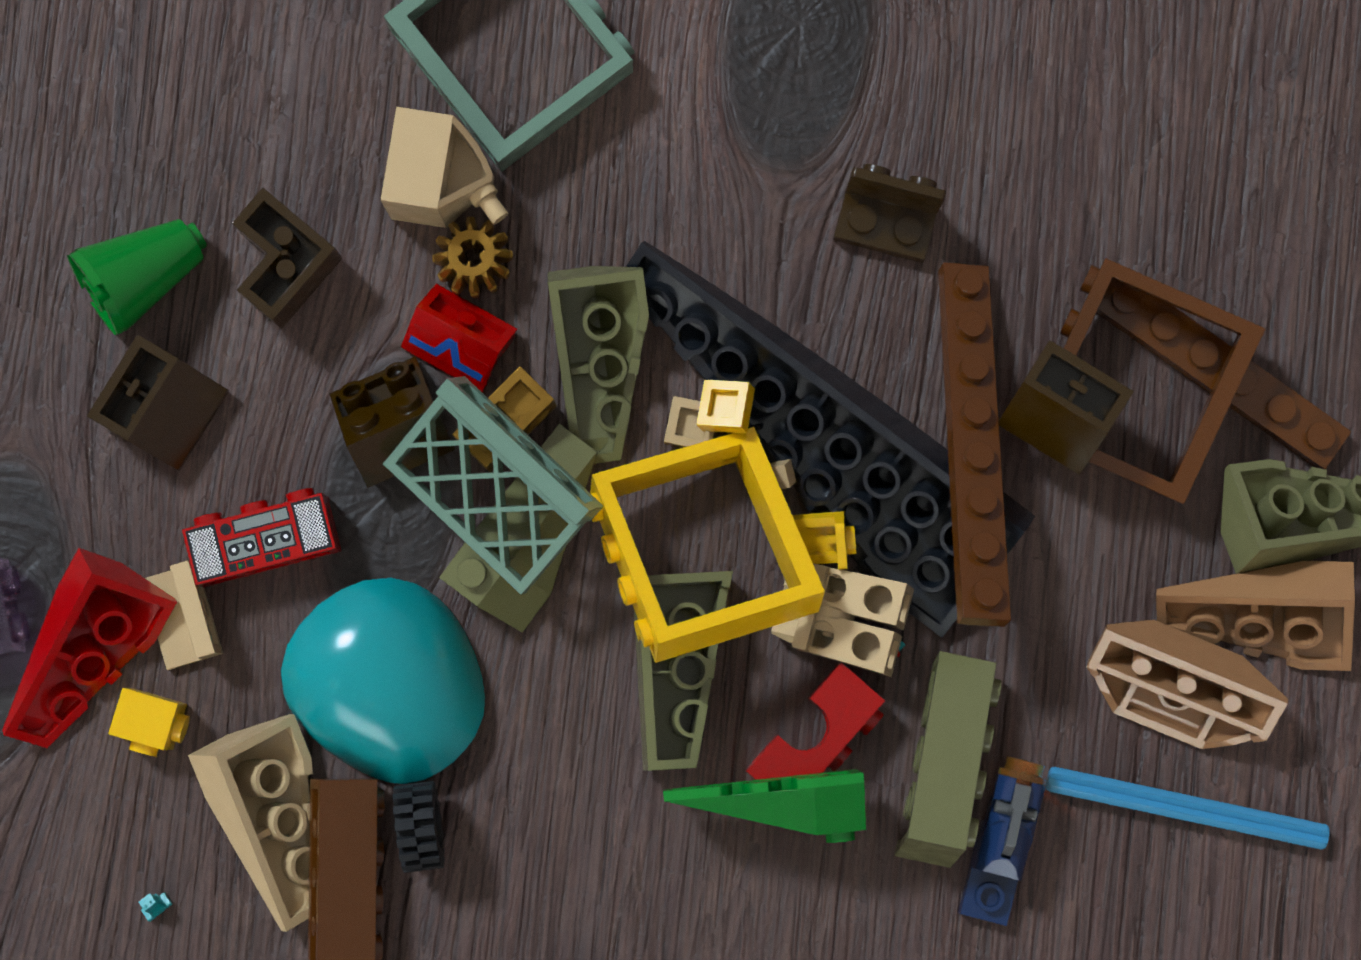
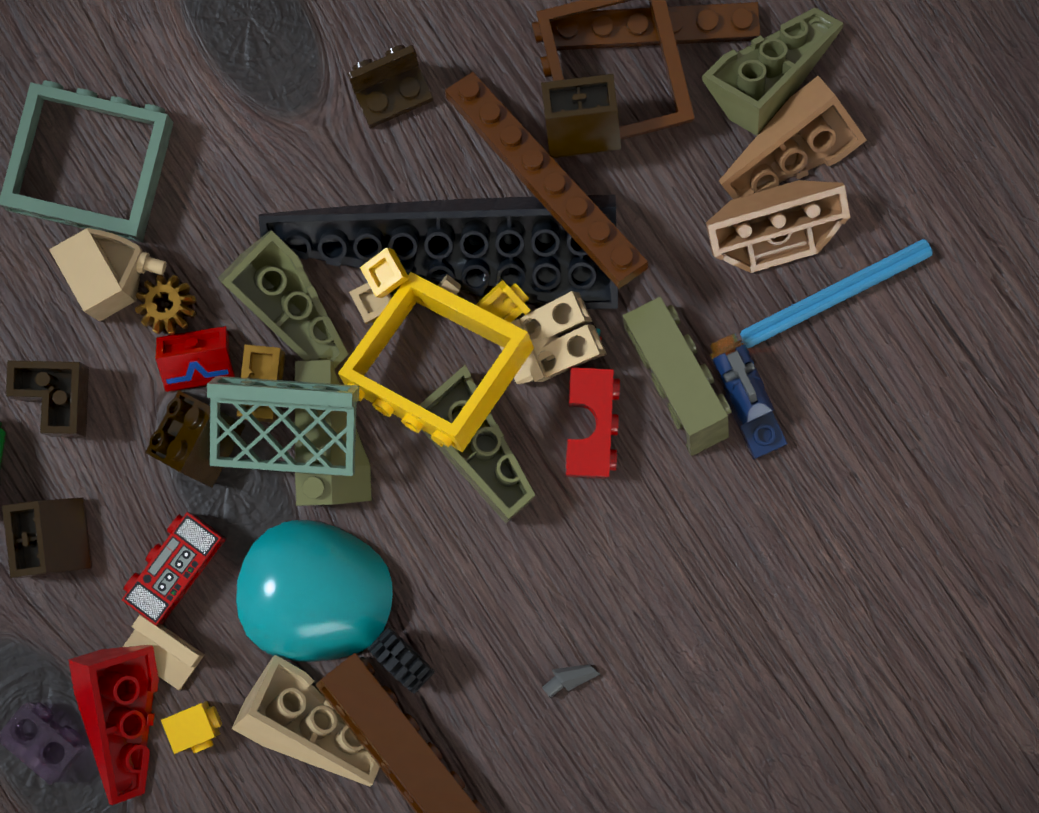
camera: 35 degrees left, 0 degrees up
(806, 803) = (618, 461): green wedge -> none

